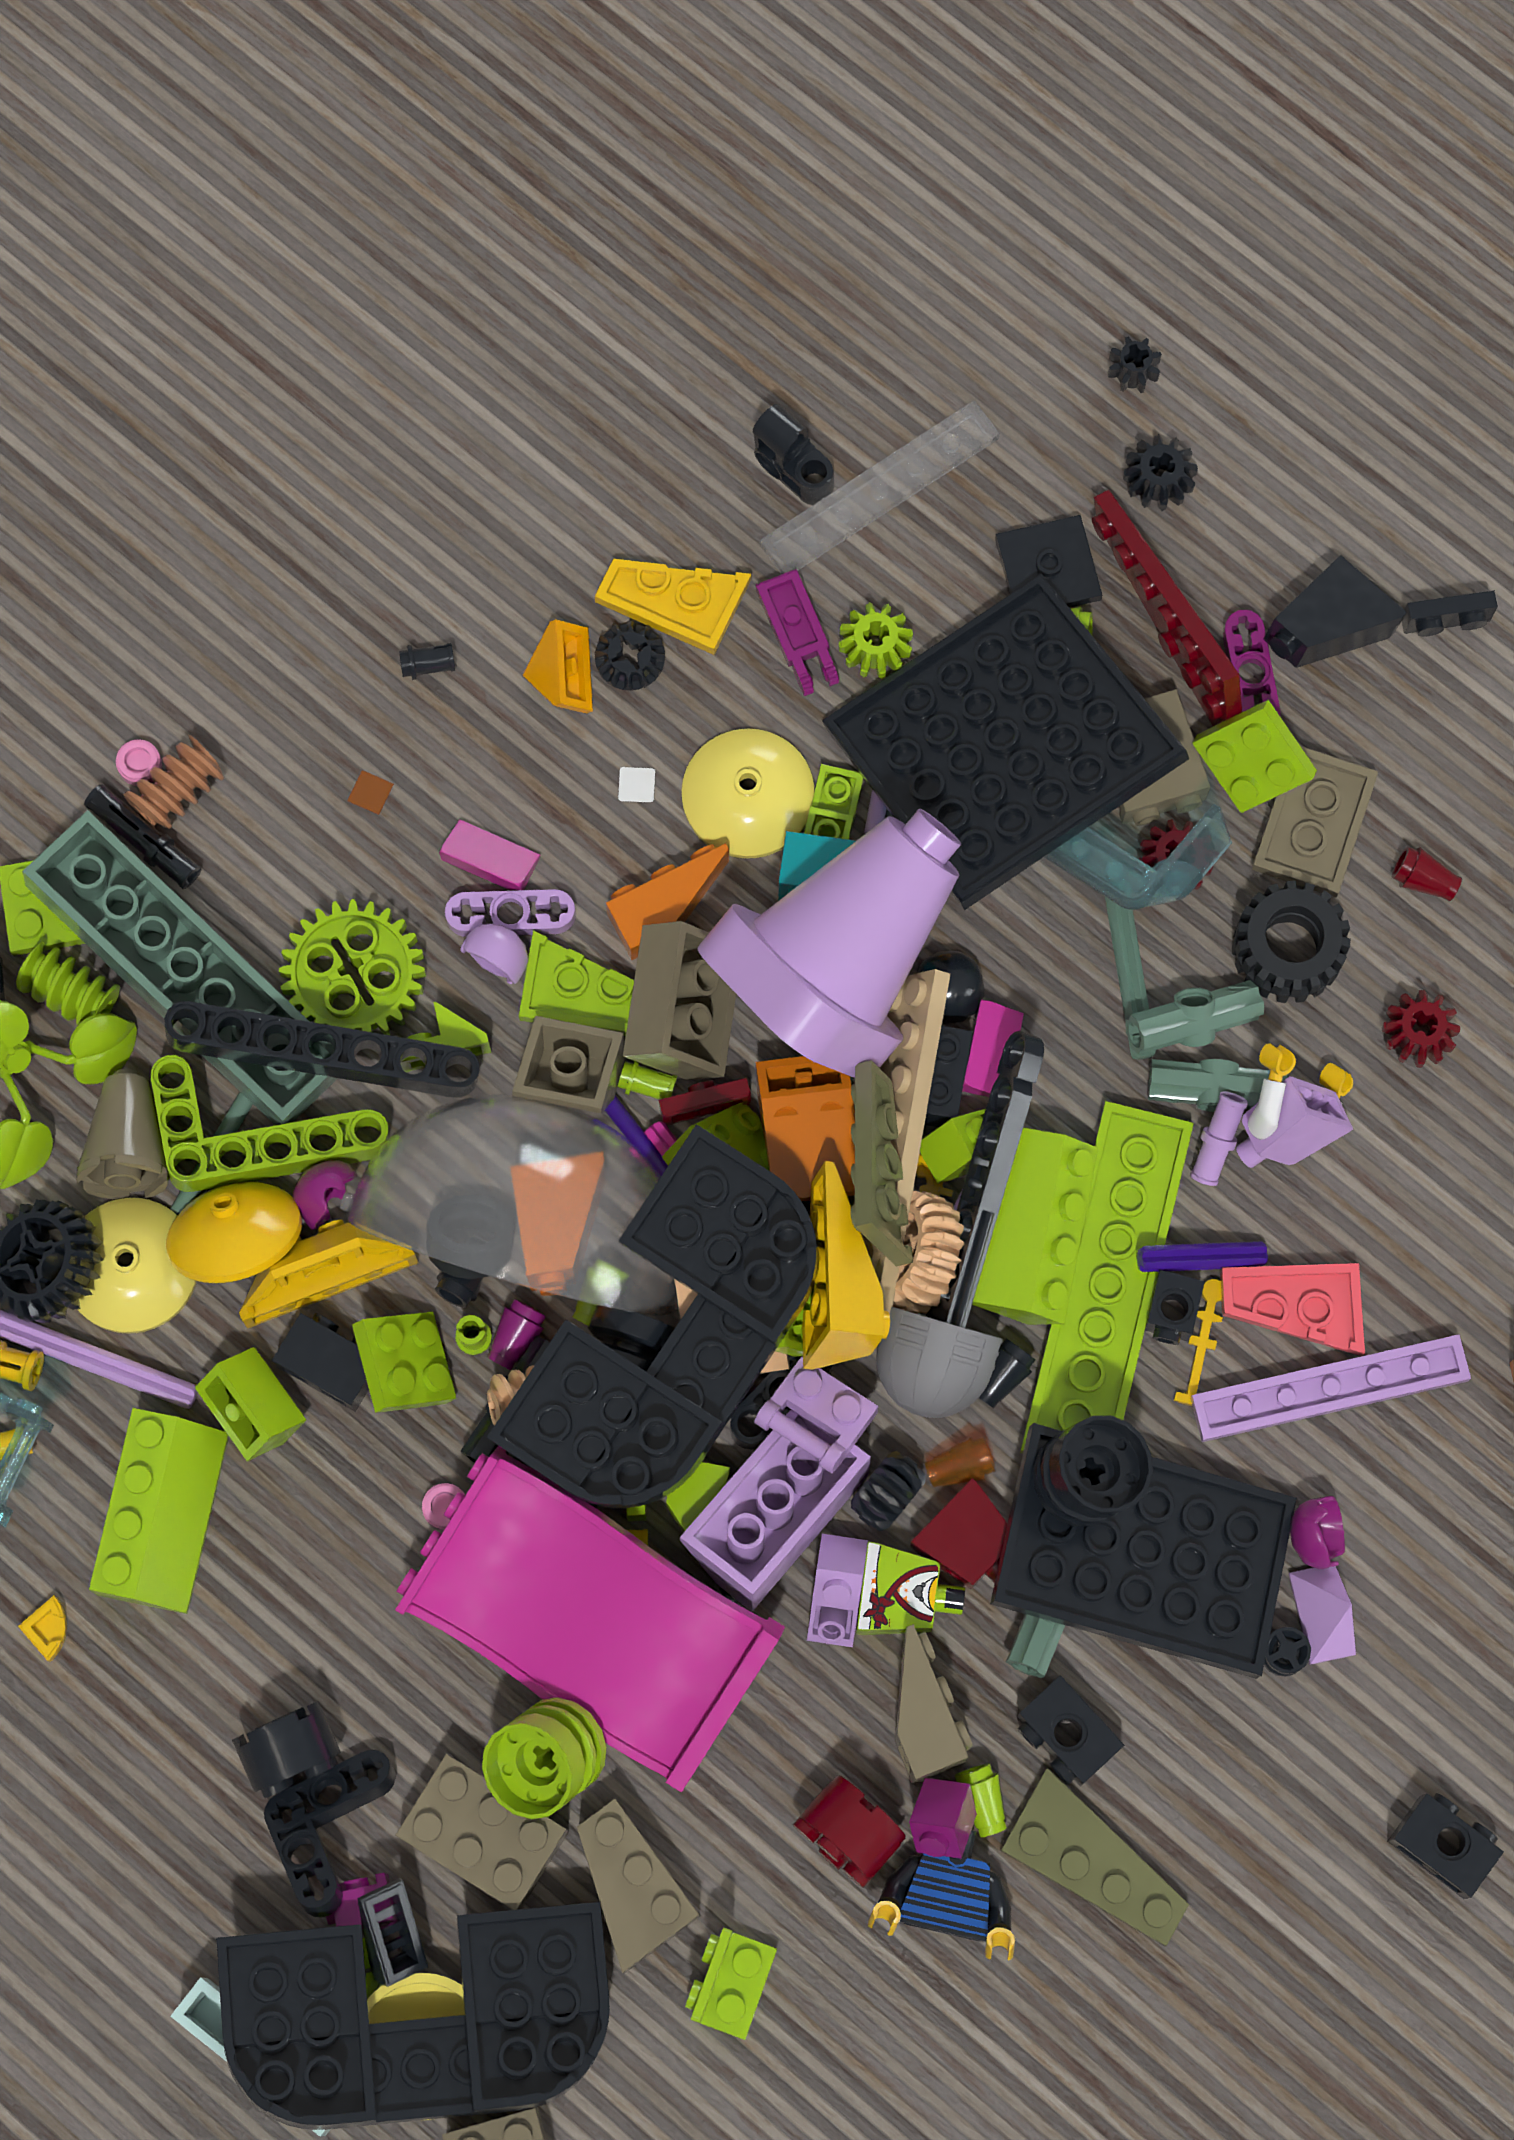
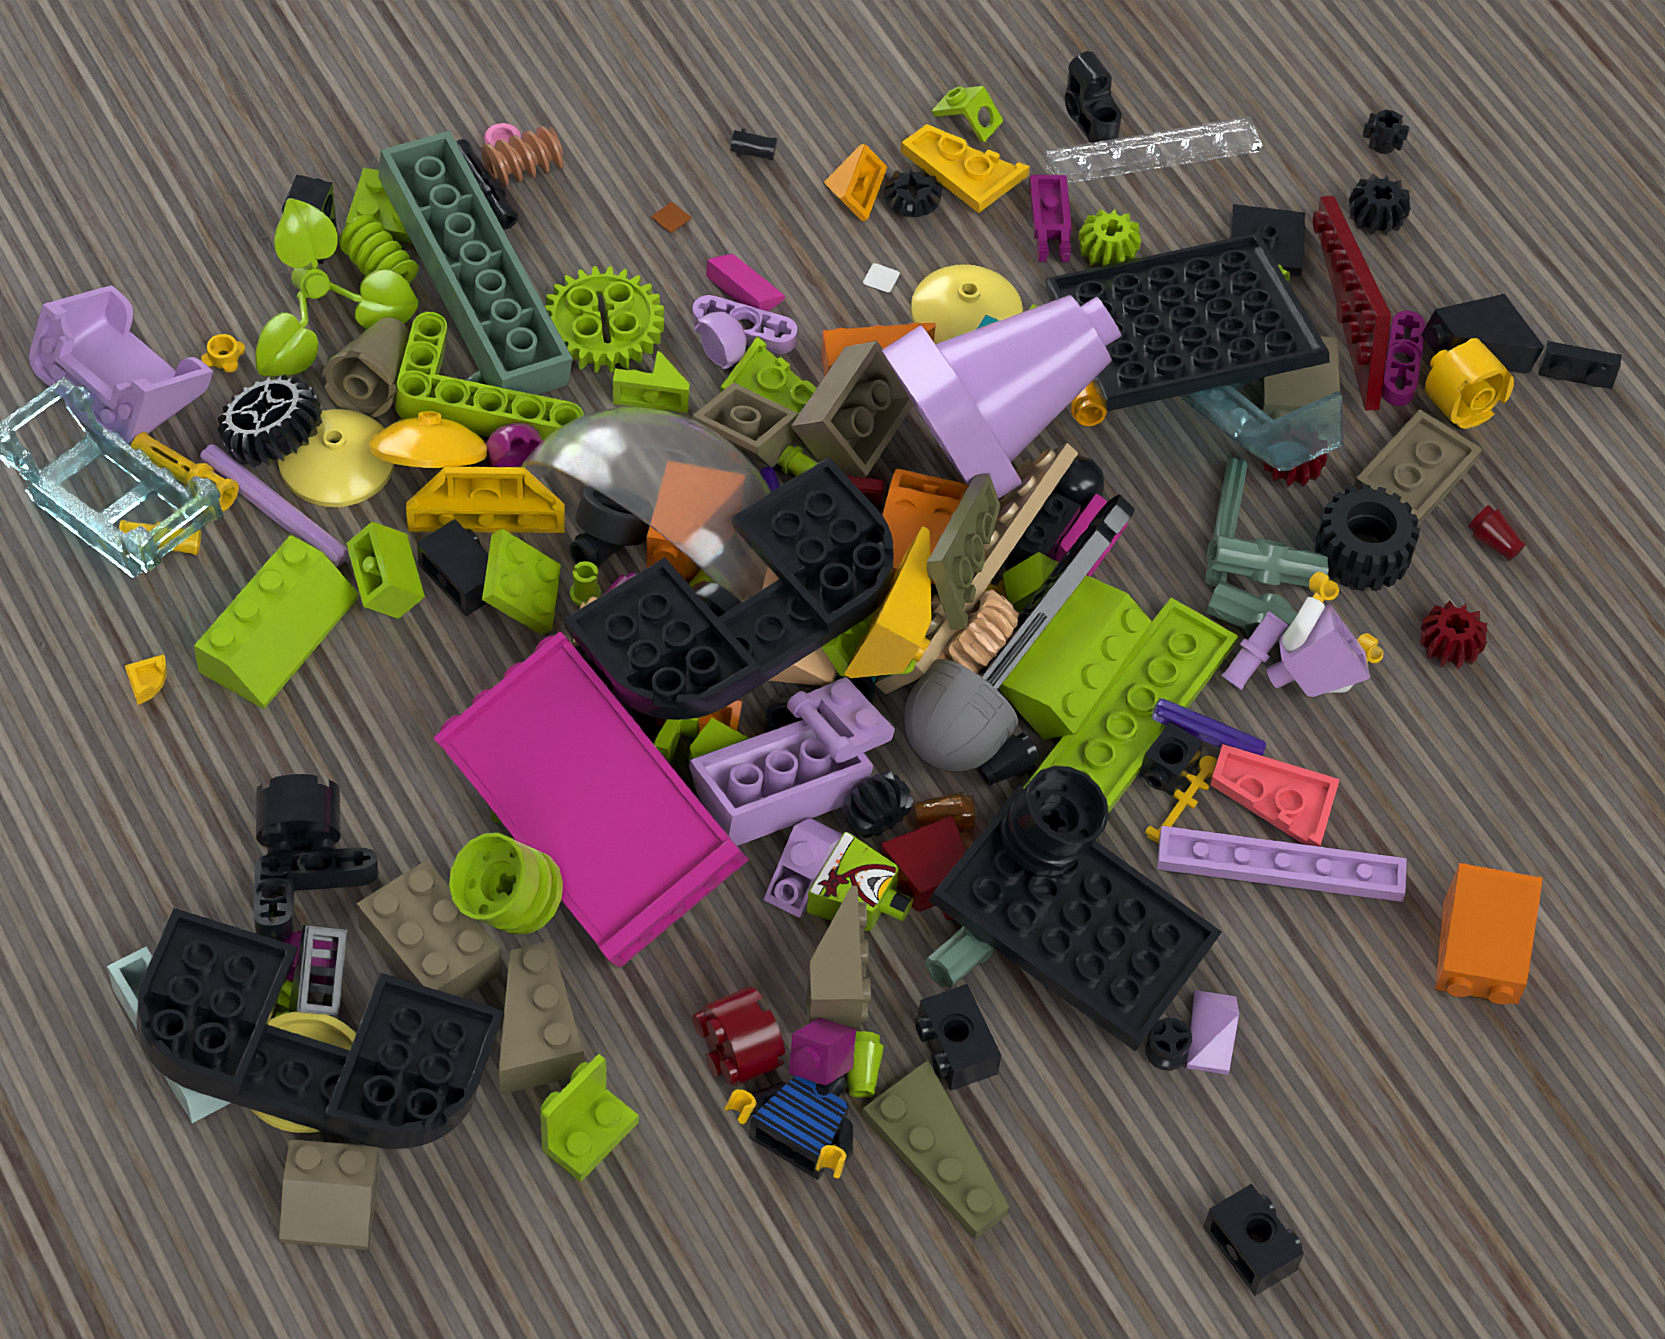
camera: 15 degrees right, 20 degrees down
(304, 1034) = (554, 337): black beam -> none
(648, 510) = (969, 102): none -> lime bracket
(1254, 756) = (1384, 397): lime plate -> none
(1318, 1532) = (1231, 961): magenta hair -> none
(1337, 694) = (1468, 383): none -> yellow brick

